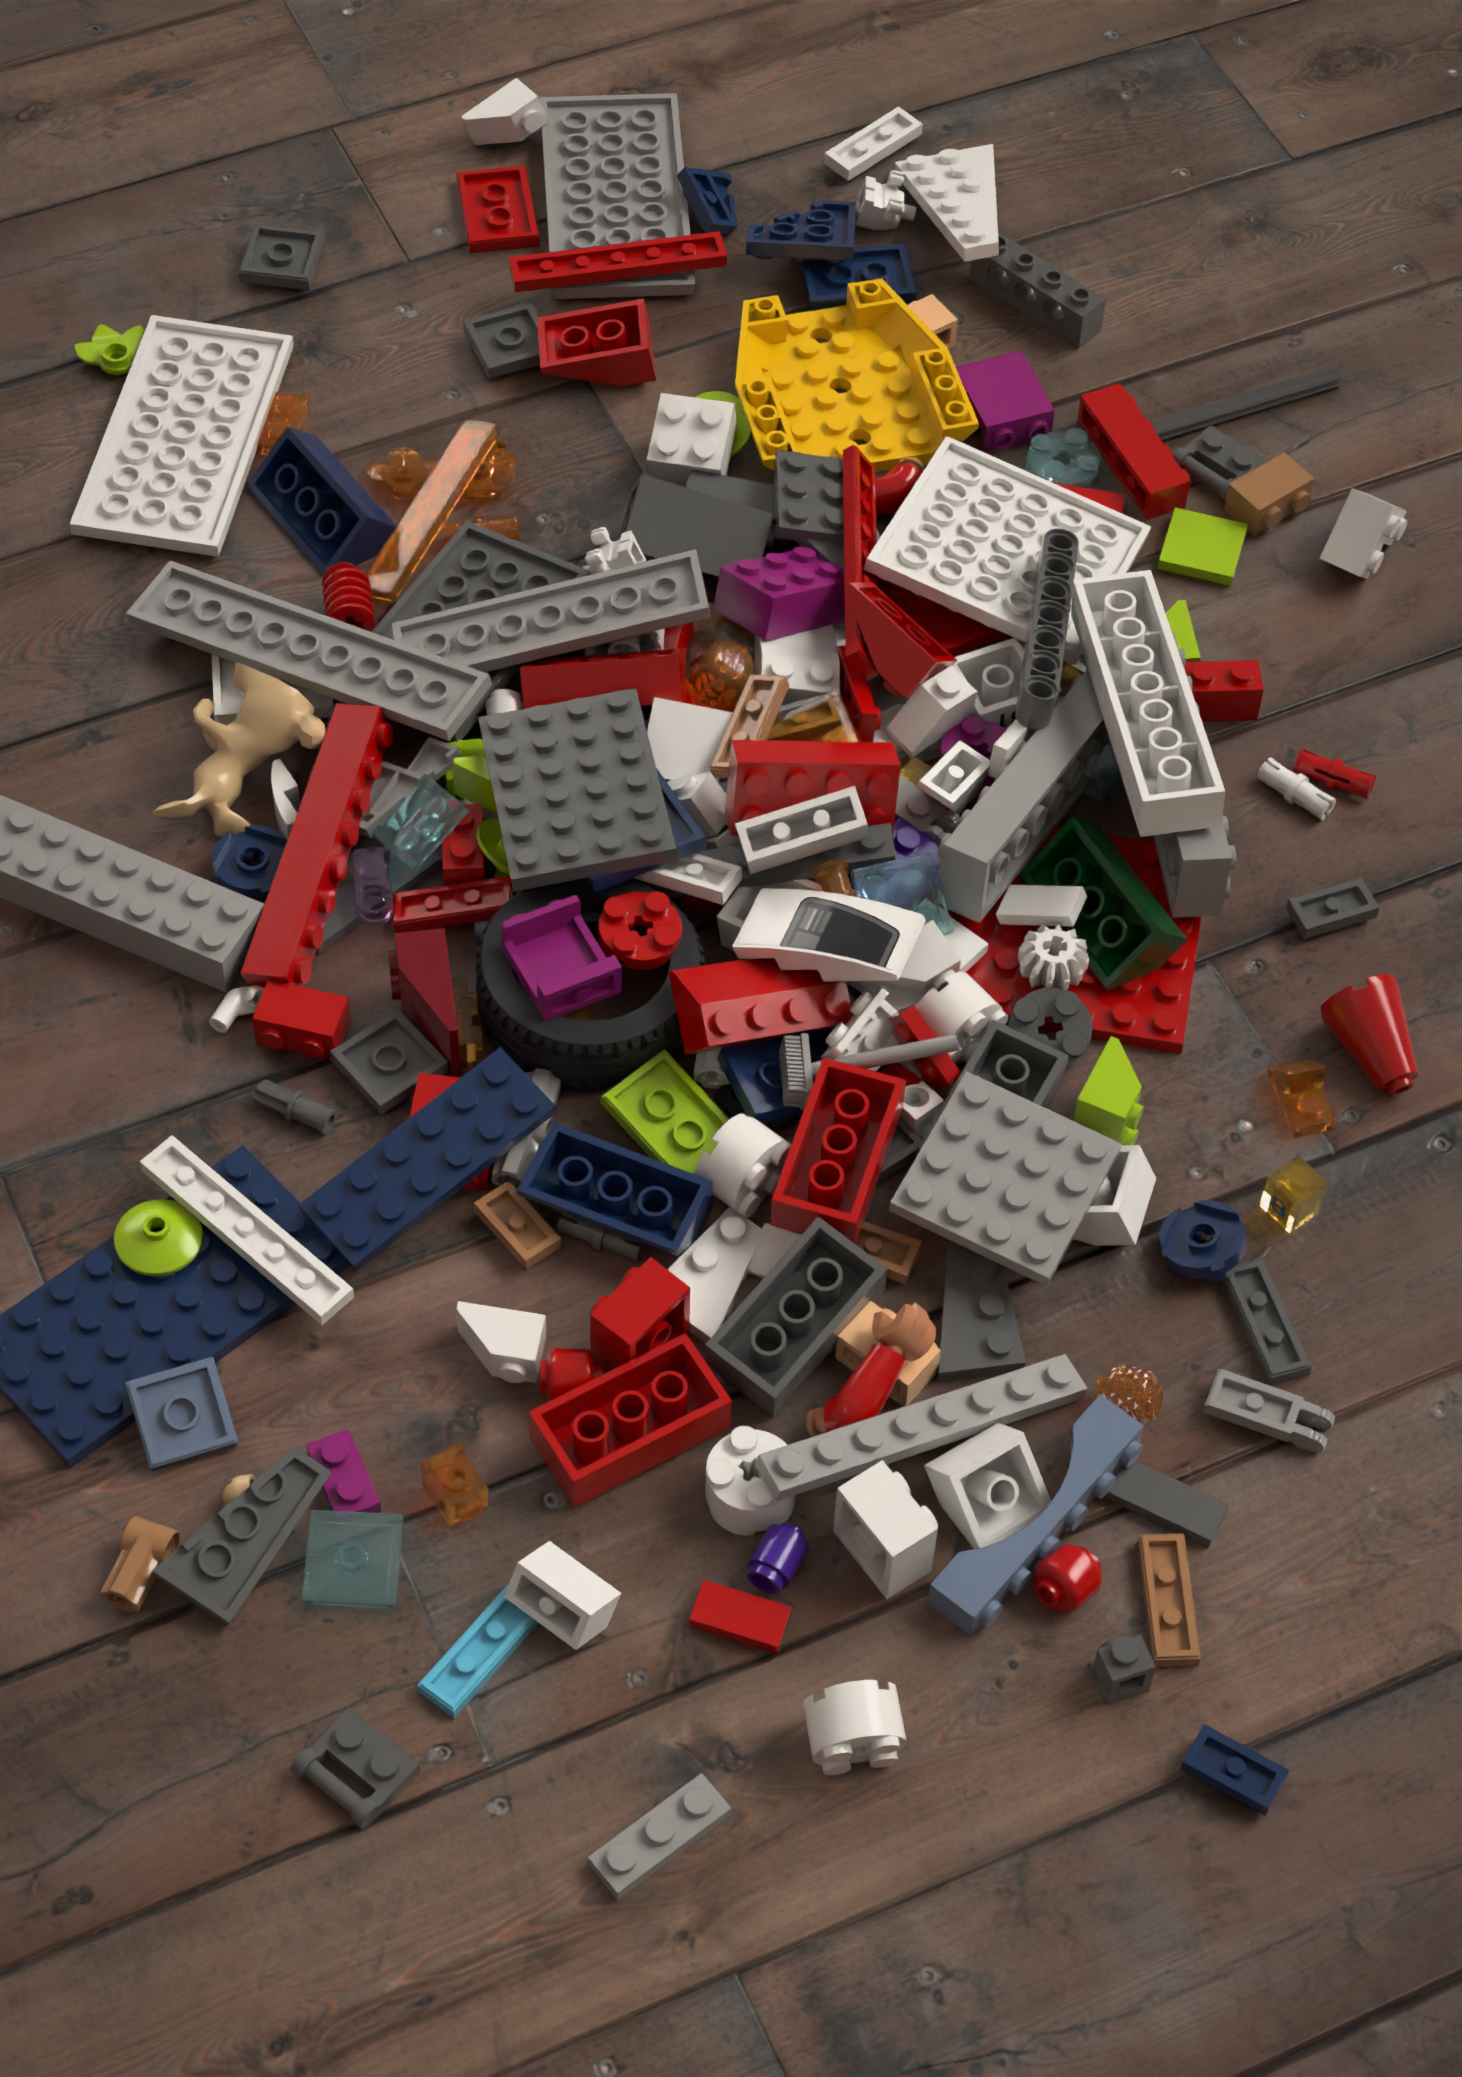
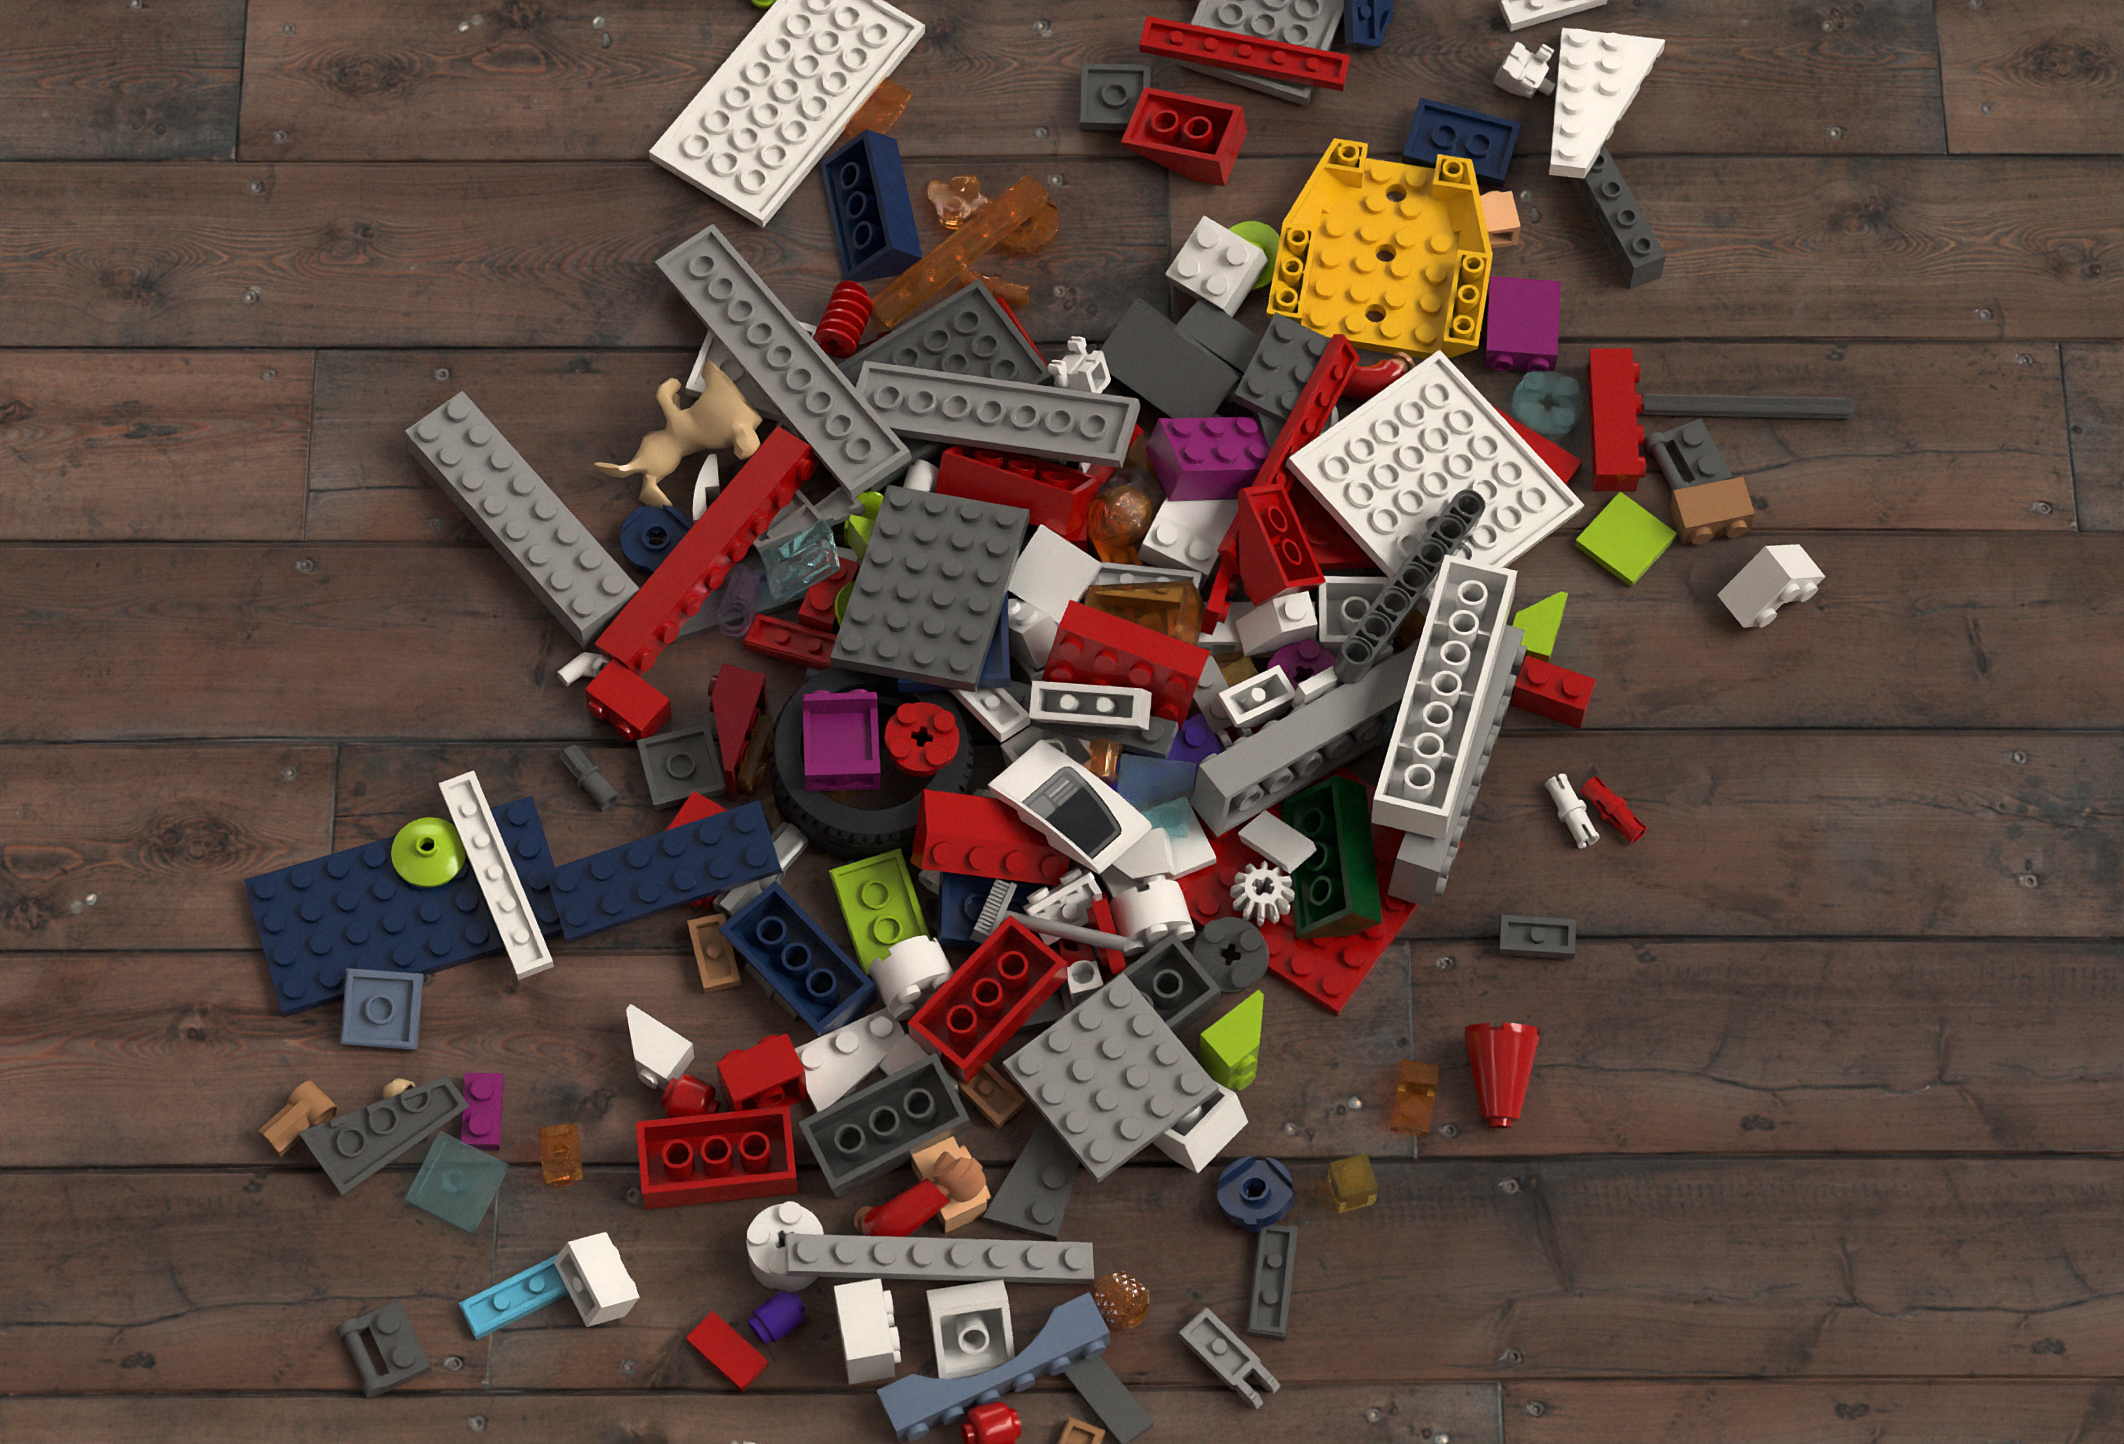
camera: 25 degrees right, 10 degrees up
(751, 717) = (1114, 575): medium nougat tile -> none
(818, 234) = (1435, 84): dark blue plate -> none

